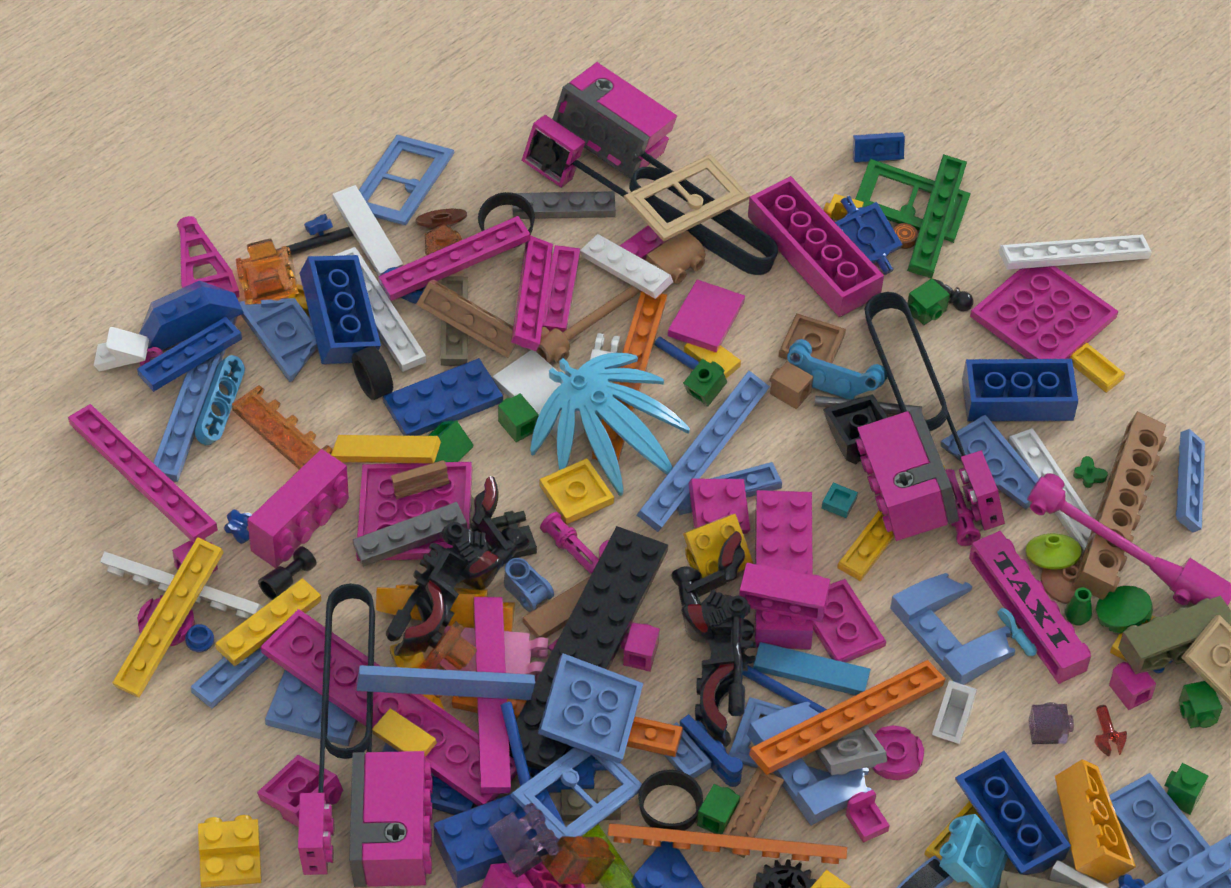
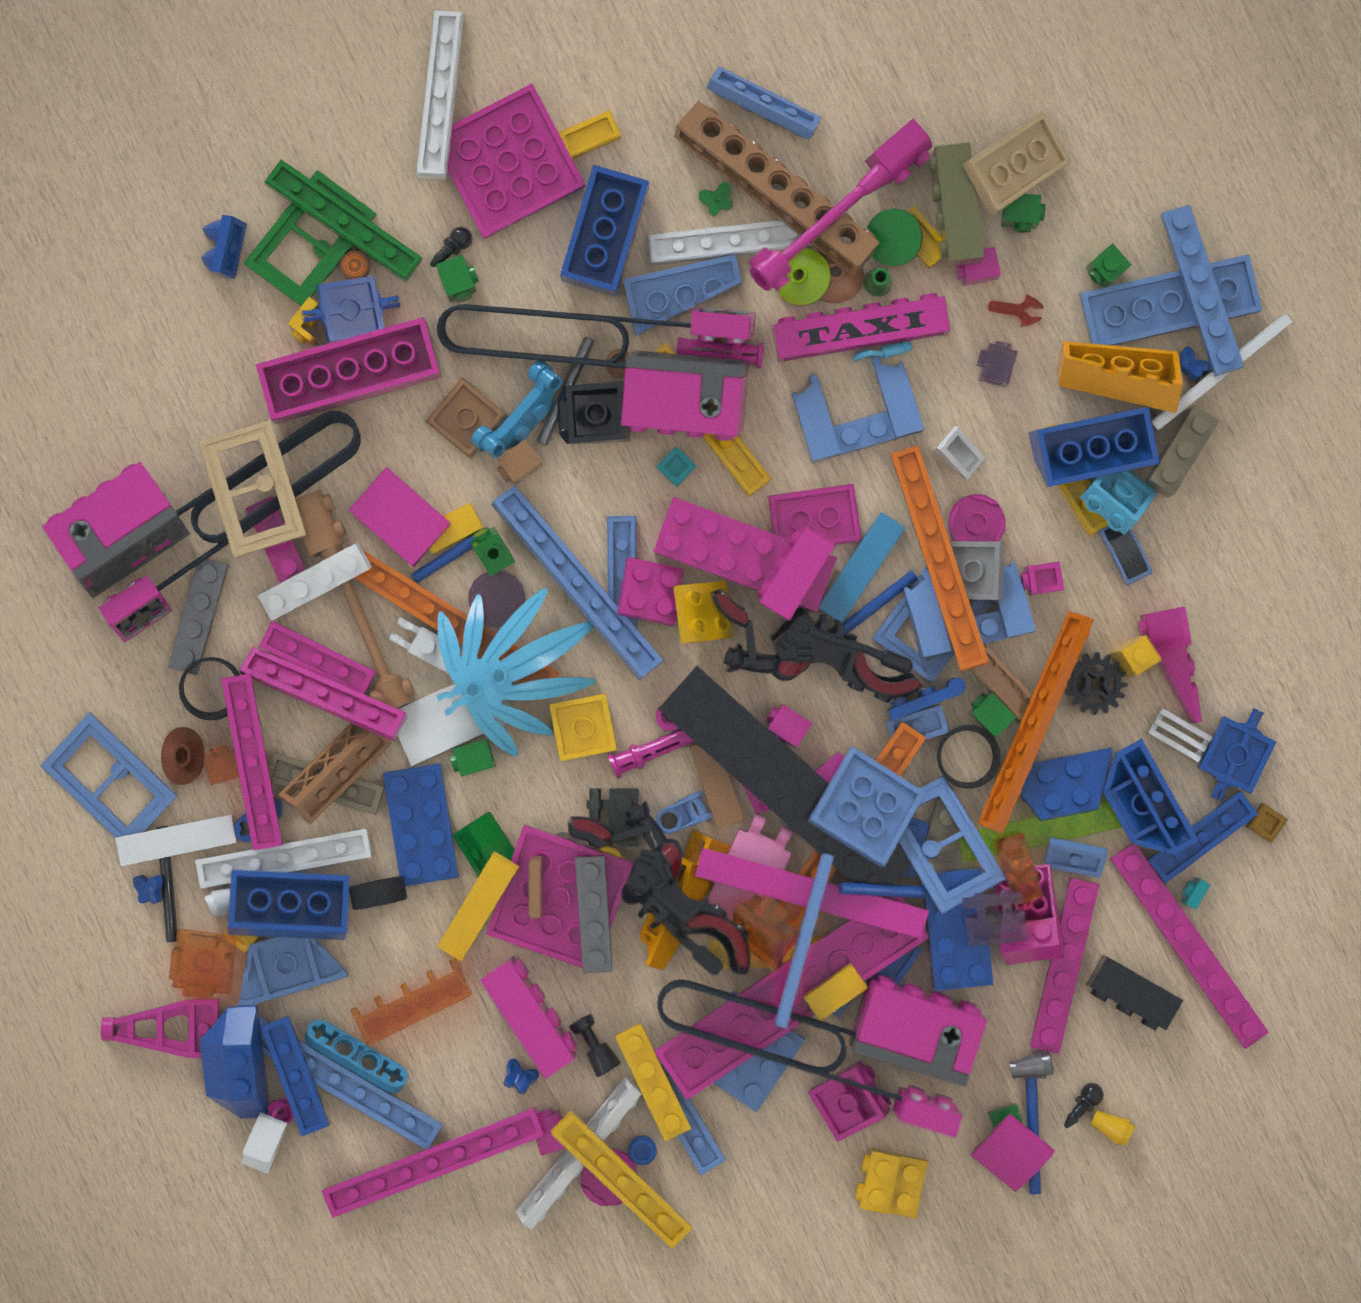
camera: 70 degrees left, 35 degrees up
(671, 395) = (500, 596): none -> clear purple tile

